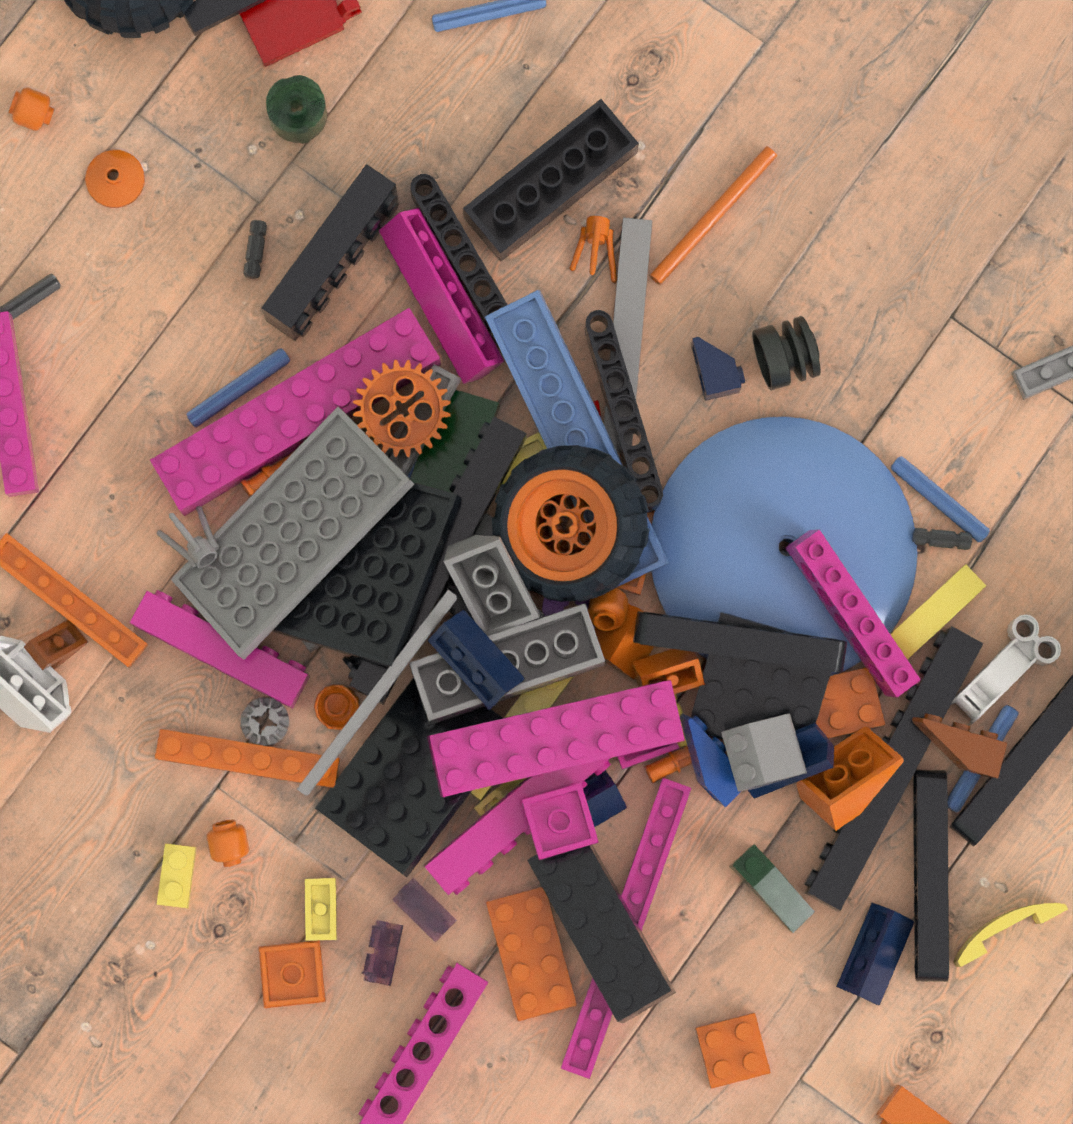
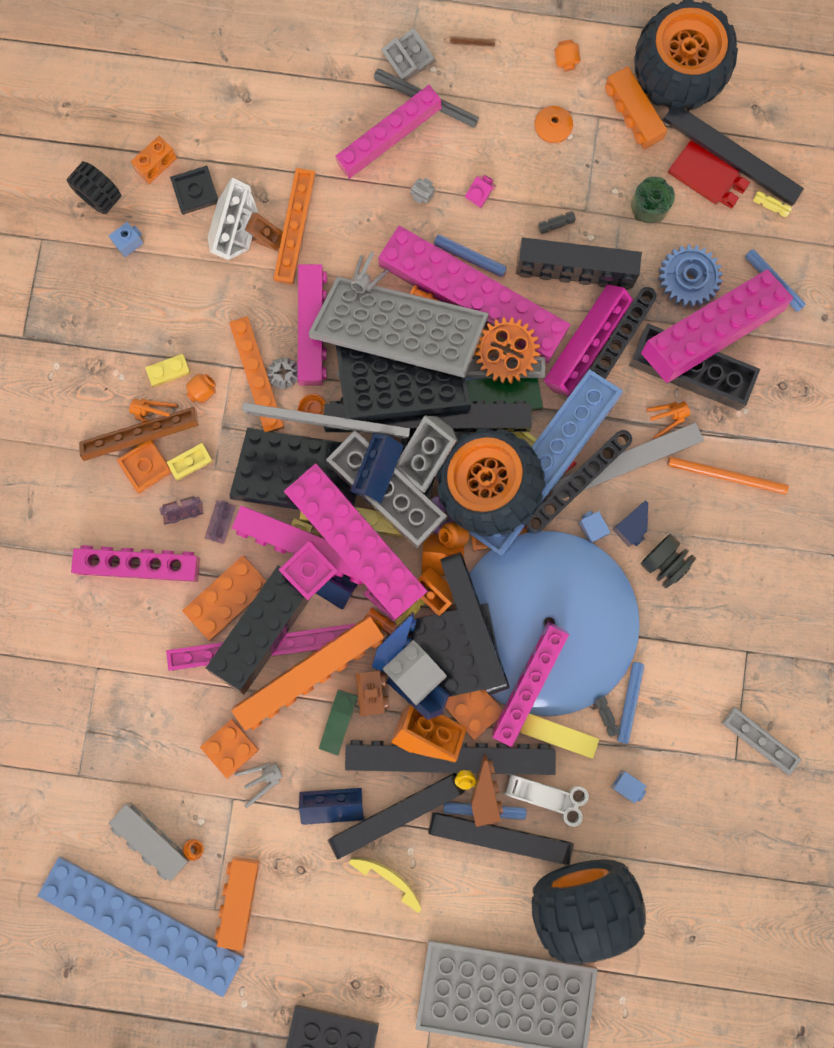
camera: 65 degrees right, 0 degrees up
(115, 402) = (422, 190): none -> light grey gear
(155, 61) = (635, 108): none -> orange brick
(156, 325) = (480, 190): none -> dark pink bracket
(210, 939) = (142, 408): none -> orange plant
(246, 958) = (138, 433): none -> dark orange plate
(420, 96) = (700, 266): none -> medium blue gear
(515, 122) = (716, 325): none -> dark pink brick
(689, 894) = (307, 673): none -> orange brick
(690, 423) = (593, 526): none -> medium blue brick
(758, 824) = (371, 694): none -> dark orange hinge
(795, 1011) = (270, 774): none -> light grey plant
(931, 761) = (465, 779): none -> yellow plate
(1045, 559) = (629, 787): none -> medium blue brick

